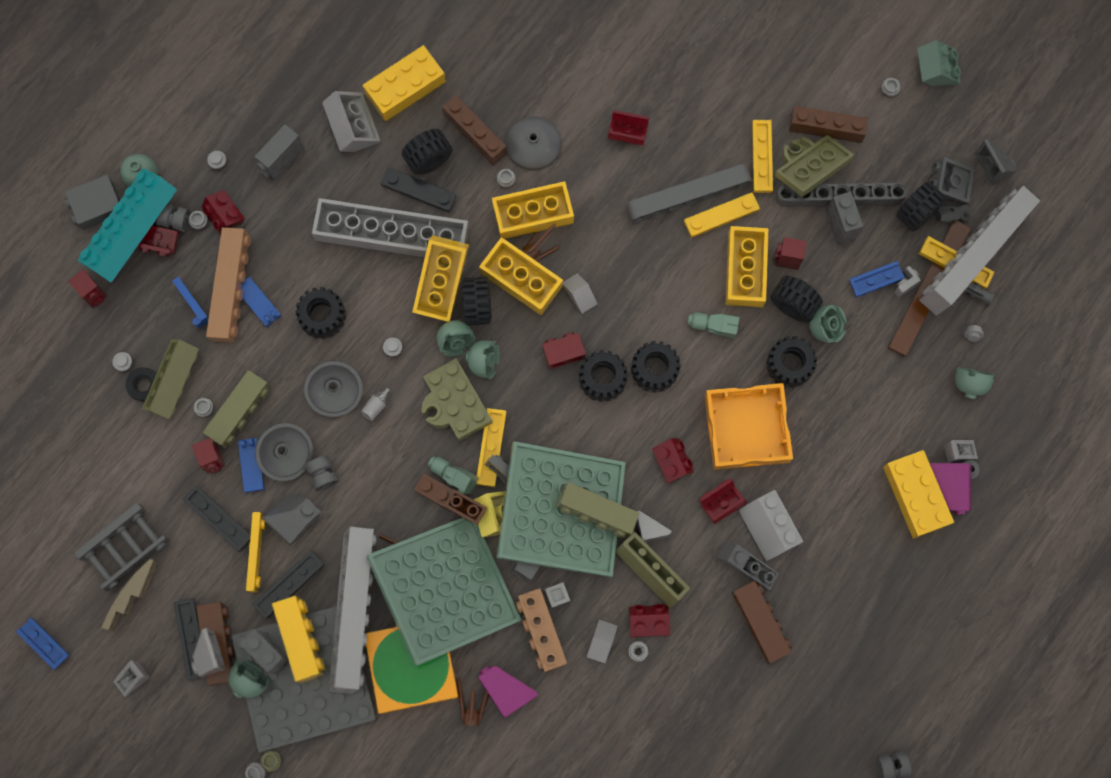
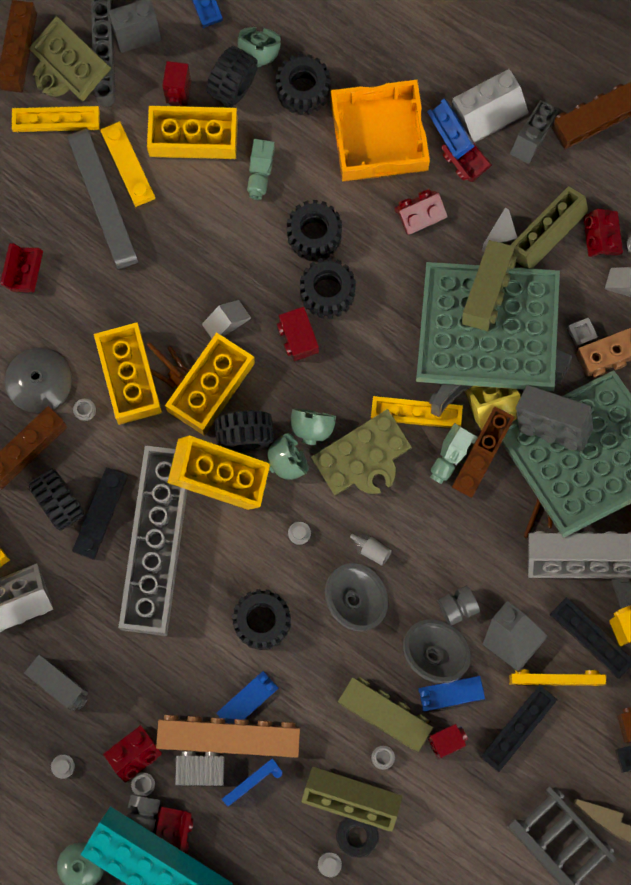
camera: 90 degrees left, 0 degrees up
(203, 262) = (200, 770): none -> light grey brick
(471, 557) = (554, 418): none -> dark grey brick
(747, 488) = (451, 129): none -> blue hinge

